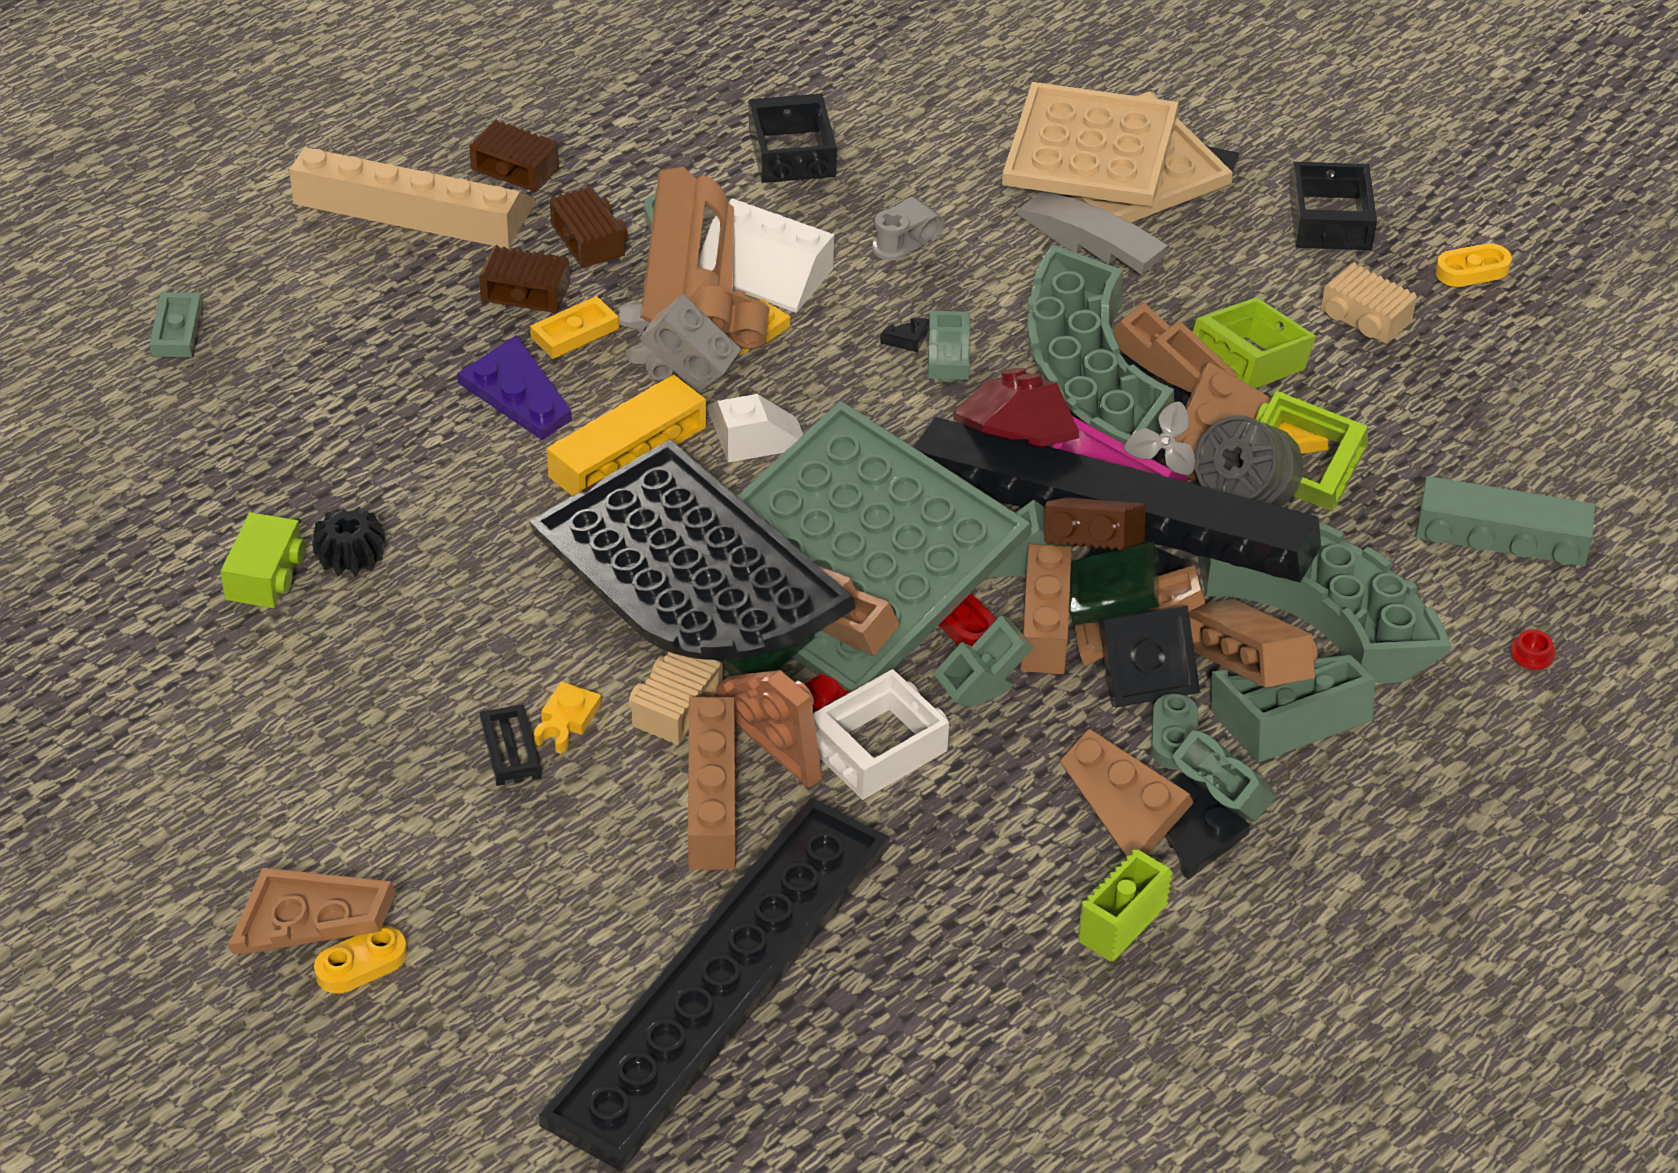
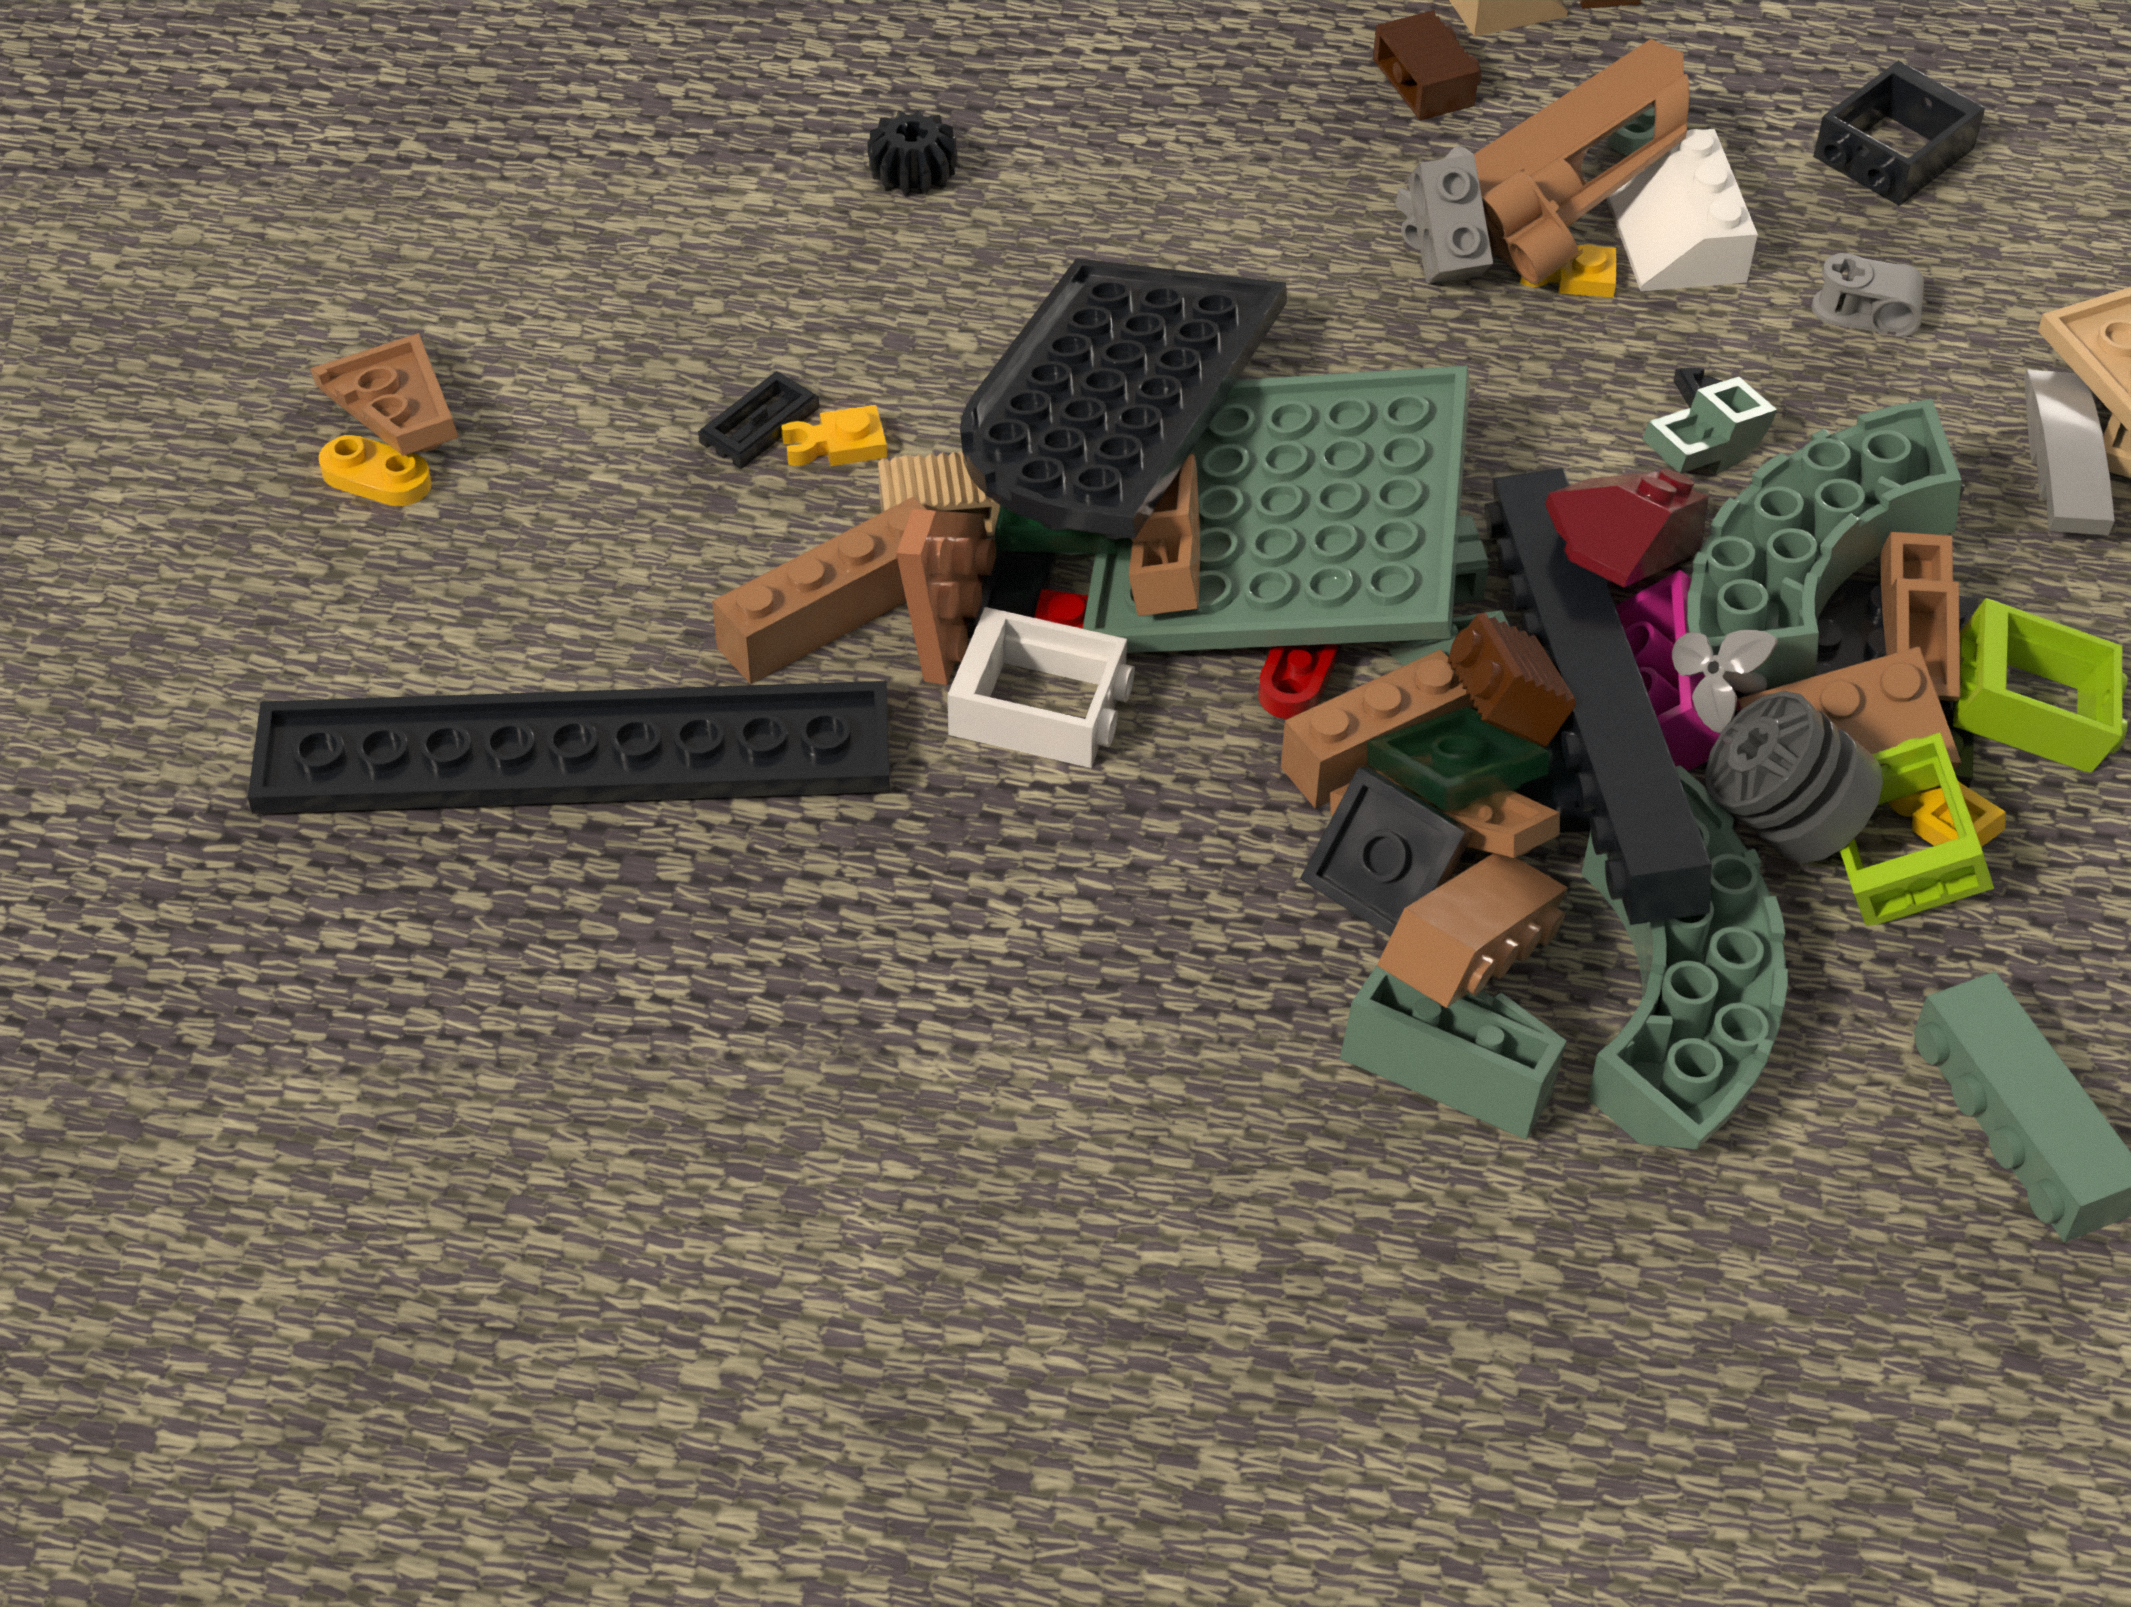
camera: 55 degrees right, 5 degrees up
(262, 560) = (823, 110): lime brick -> none
(517, 388) = (1269, 150): dark purple wing -> none
(574, 327) = (1399, 136): yellow plate -> none
(588, 227) = (1560, 59): reddish brown brick -> none
(625, 433) = (1318, 263): yellow brick -> none
(753, 427) = (1400, 334): white slope -> none
(981, 670) = (1225, 725): sand green brick -> none
(1124, 905) = (962, 1033): lime brick -> none
(1125, 793) = (1156, 955): medium nougat wing -> none
(1172, 722) = (1321, 954): sand green plate -> none
(1204, 829) = (1181, 1050): black wing -> none
(1224, 775) = (1260, 1027): sand green brick -> none
(1533, 650) = (1829, 1253): red plate -> none

